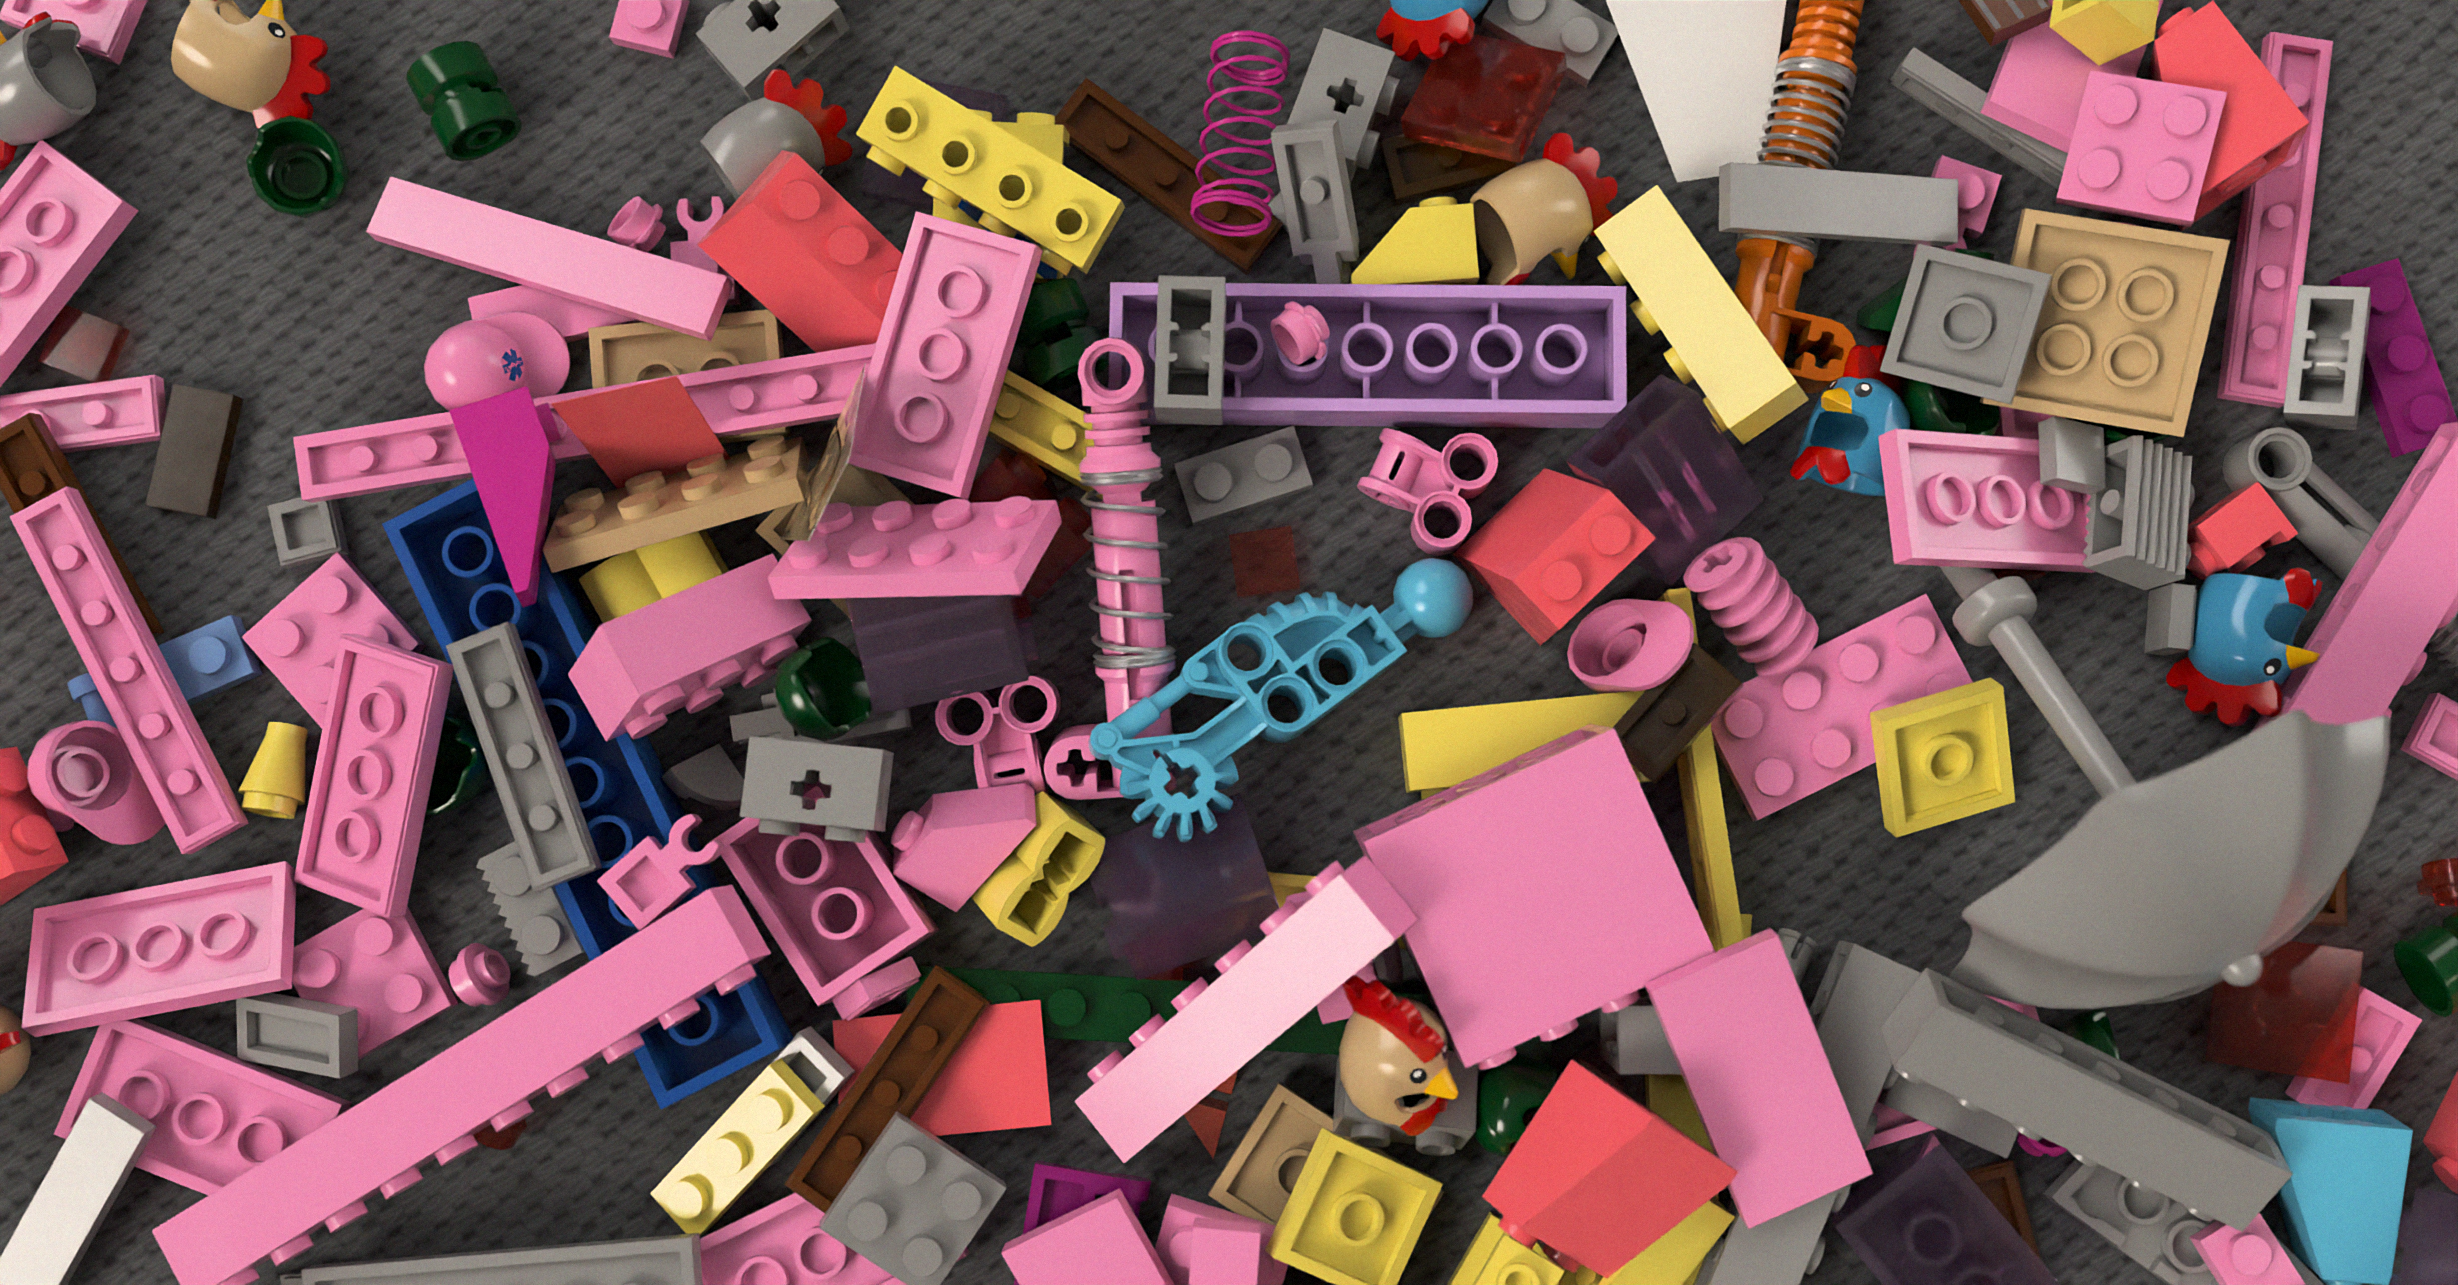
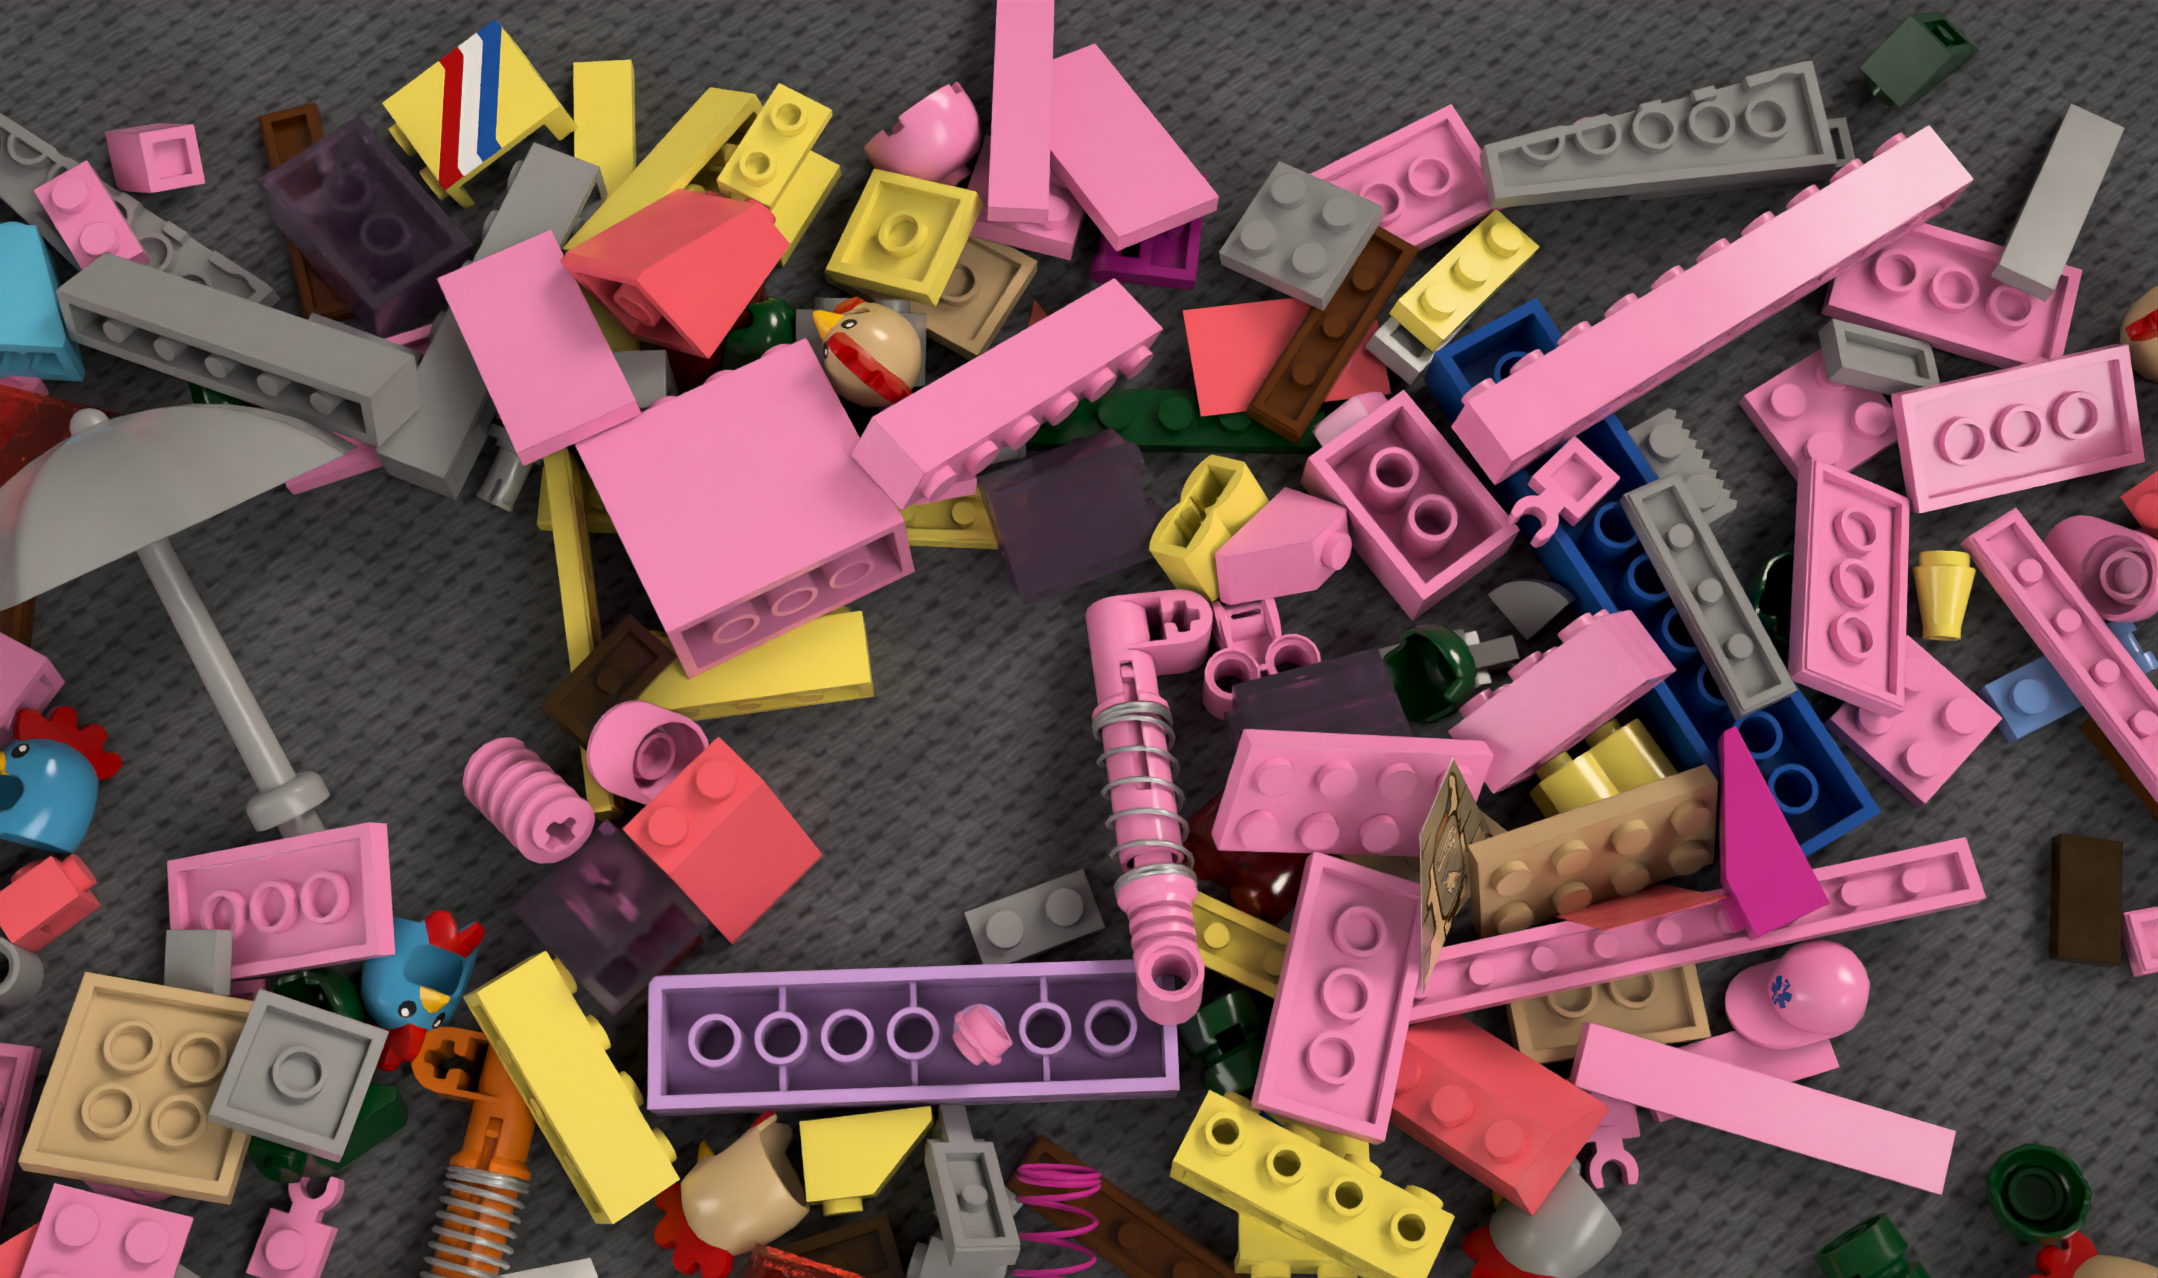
camera: 165 degrees right, 10 degrees down
(307, 531) = (1960, 818): light grey tile -> none
(480, 975) = (1721, 420): bright pink plate -> none
(637, 225) = (1677, 1150): bright pink plate -> none
(782, 767) = (1394, 585): light grey brick -> none
(1190, 350) = (1092, 1001): light grey brick -> none
(1264, 562) = (1010, 837): clear red tile -> none
(1429, 483) = (851, 915): bright pink piece -> none
(1429, 601) = (978, 744): medium azure arm -> none
(1813, 722) = (425, 723): bright pink plate -> none
(1837, 204) = (422, 1210): light grey tile -> none
(1943, 757) = (347, 667): light yellow plate -> none
(2142, 515) = (130, 904): light grey brick -> none
(2170, 619) = (113, 811): light grey tile -> none

